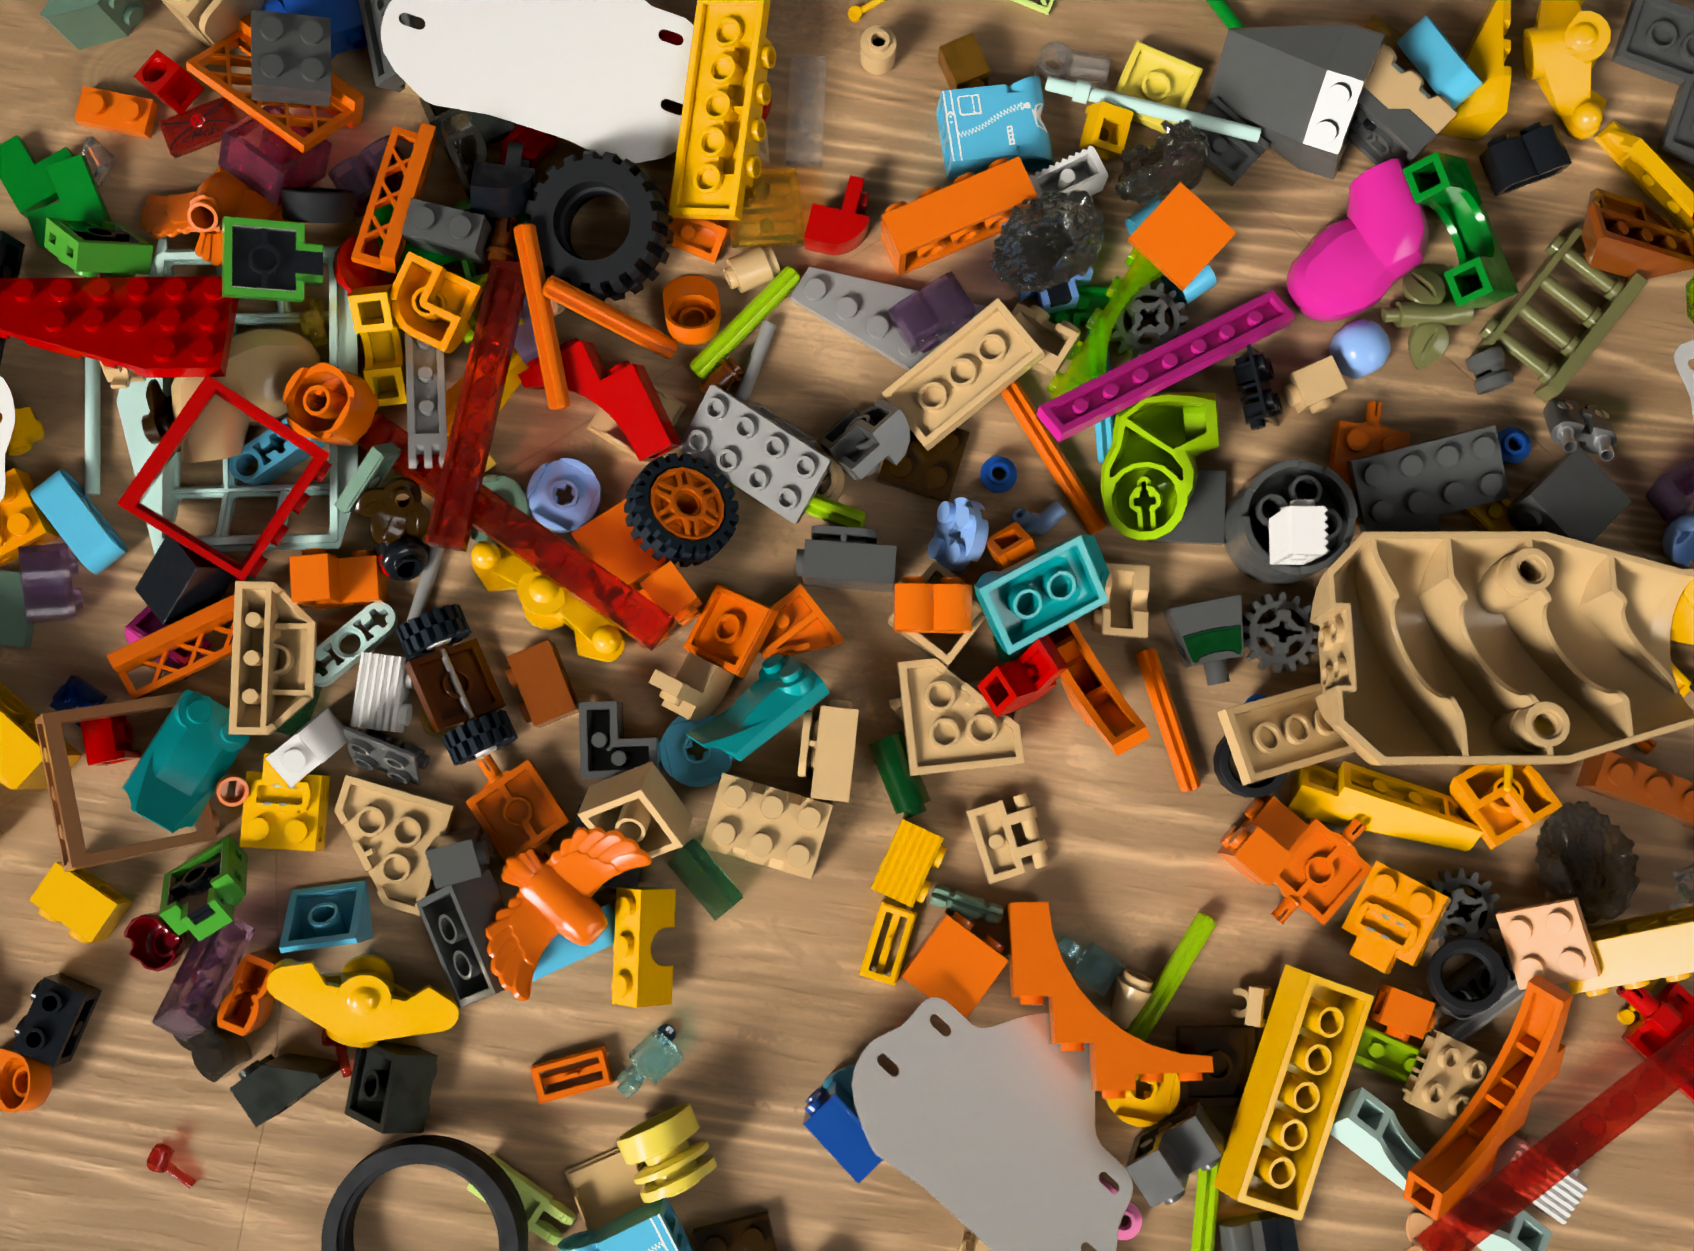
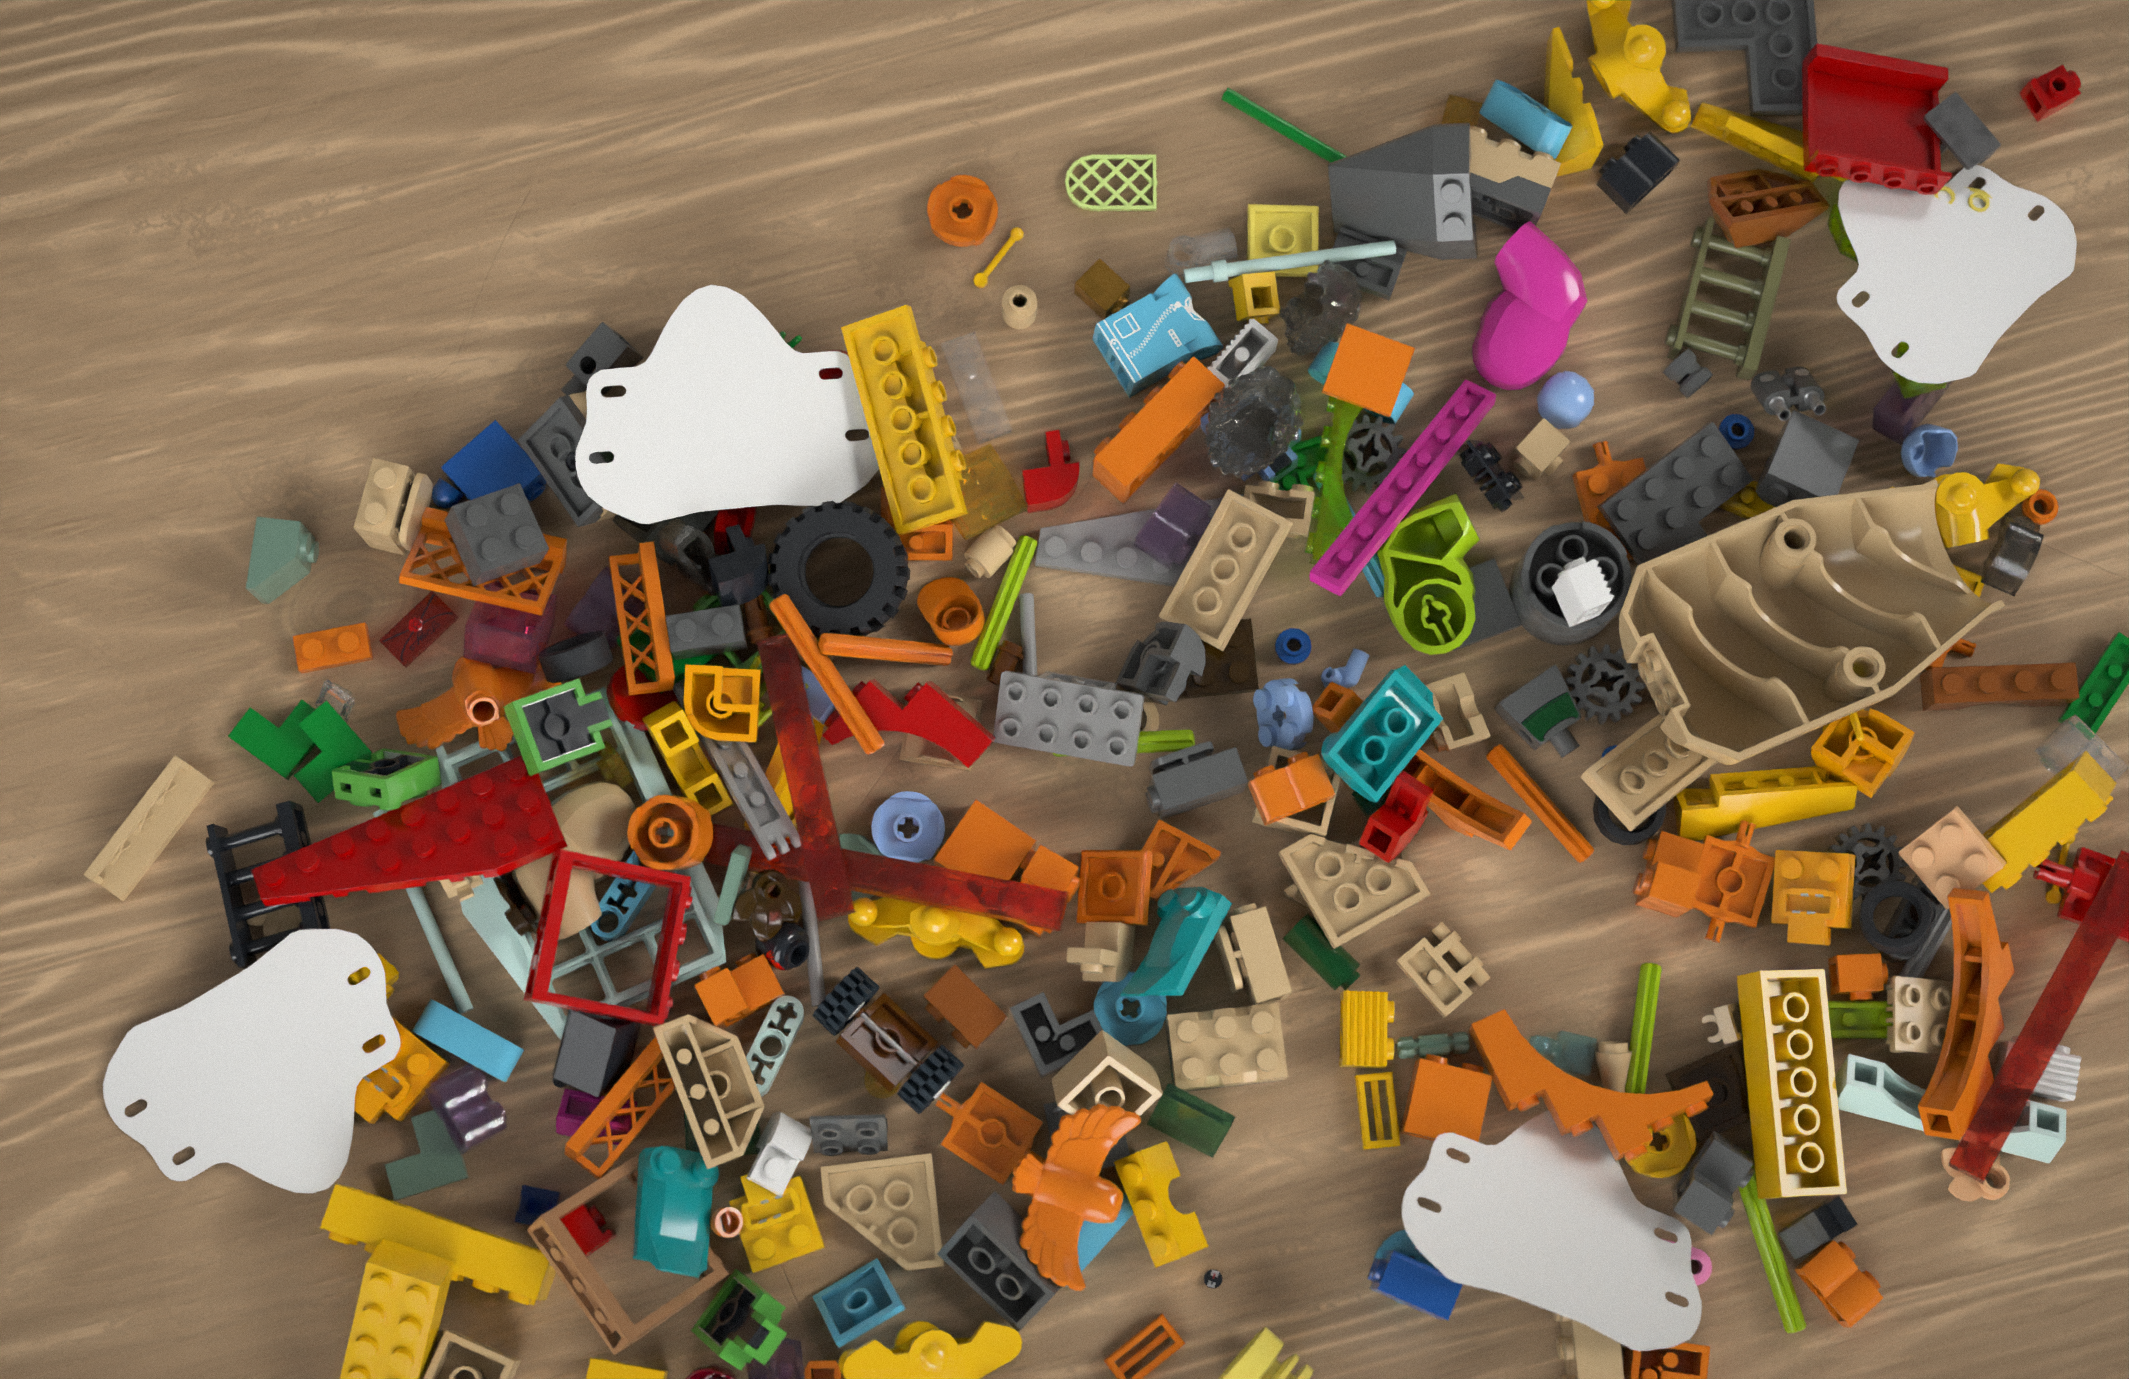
camera: 30 degrees left, 5 degrees down
(168, 82) = (376, 600): red brick -> none
(382, 693) = (821, 1077): white brick -> none
(459, 856) = (964, 1189): dark grey brick -> none
(650, 1059) = (1211, 1305): clear light blue plate -> none
(667, 530) = (1025, 796): wheel -> none
(1054, 458) = (1338, 612): orange axle -> none
(1426, 316) = (1612, 346): olive plant -> none
(1449, 189) = (1587, 229): green arch -> none
(1587, 860) = (1957, 770): clear smoke hair -> none

